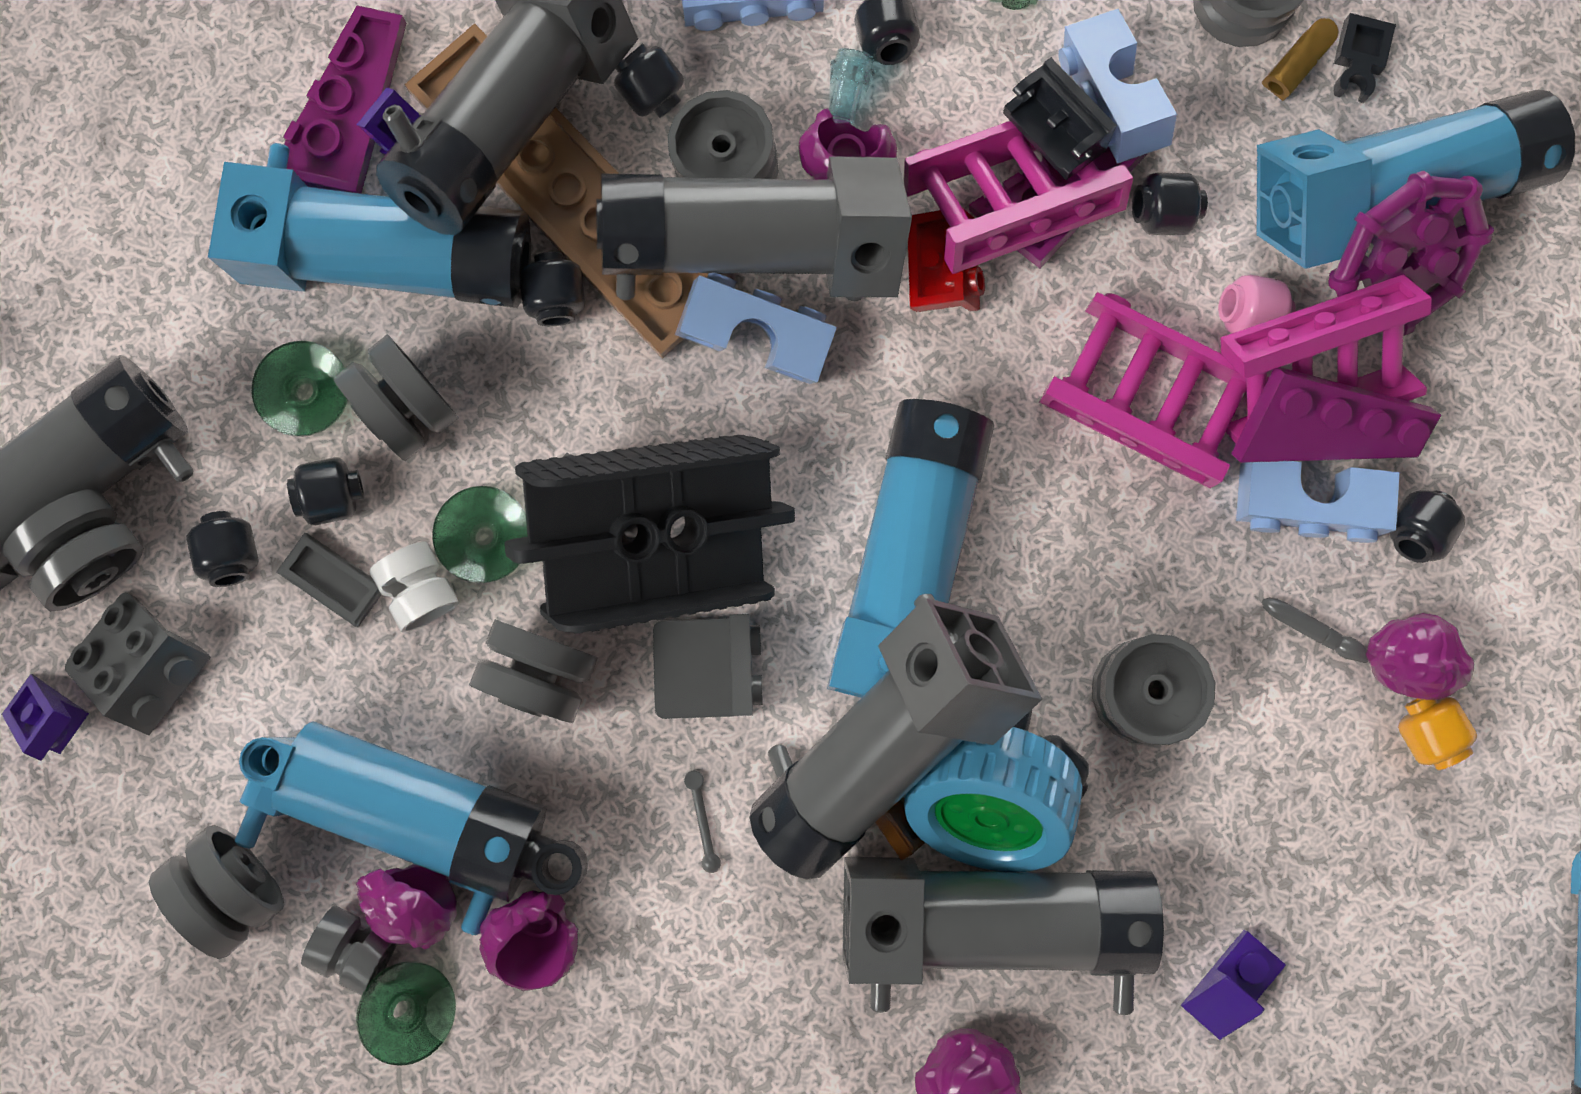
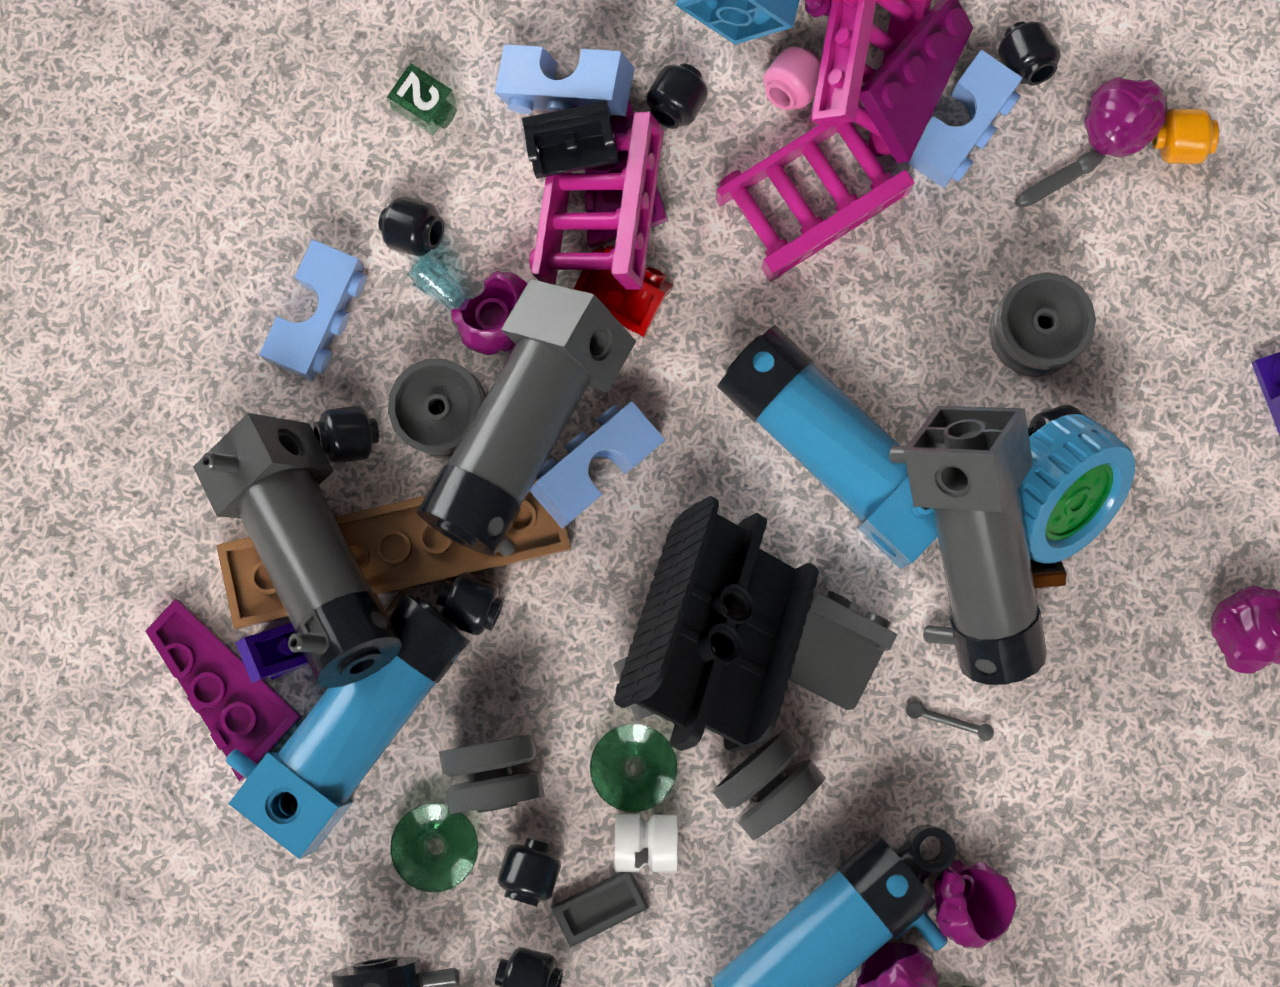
camera: 55 degrees left, 0 degrees up
(997, 922) = (1117, 601): dark grey piece -> none

